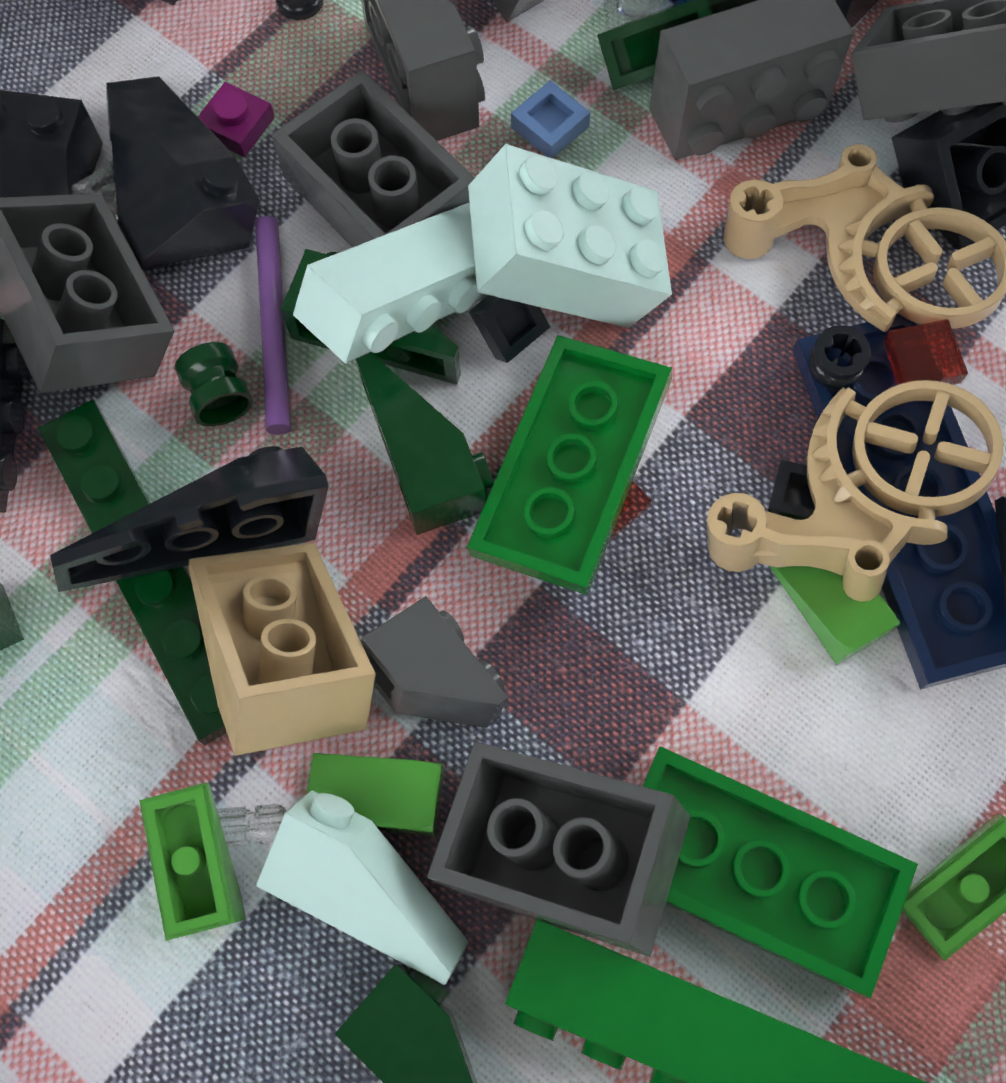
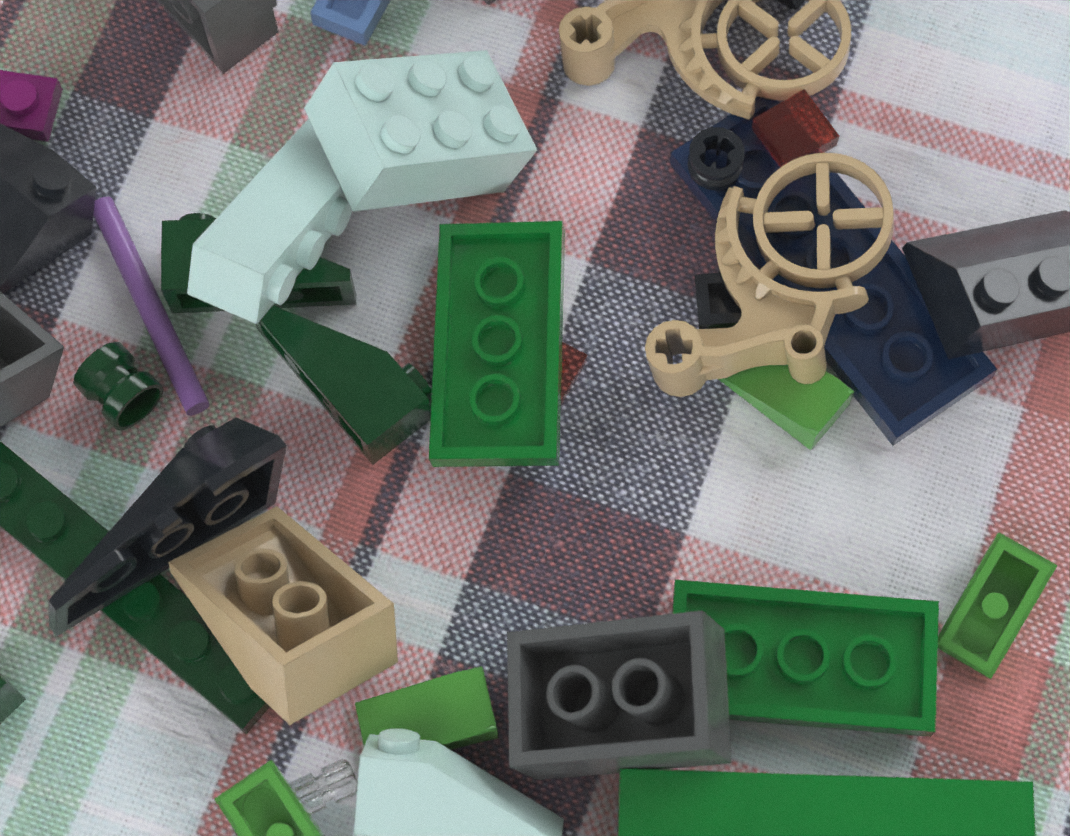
camera: 20 degrees left, 0 degrees up
(368, 163) = (193, 117): dark grey brick -> none
(430, 670) = (441, 585): dark grey slope -> none
(508, 325) = (387, 231): black plate -> none

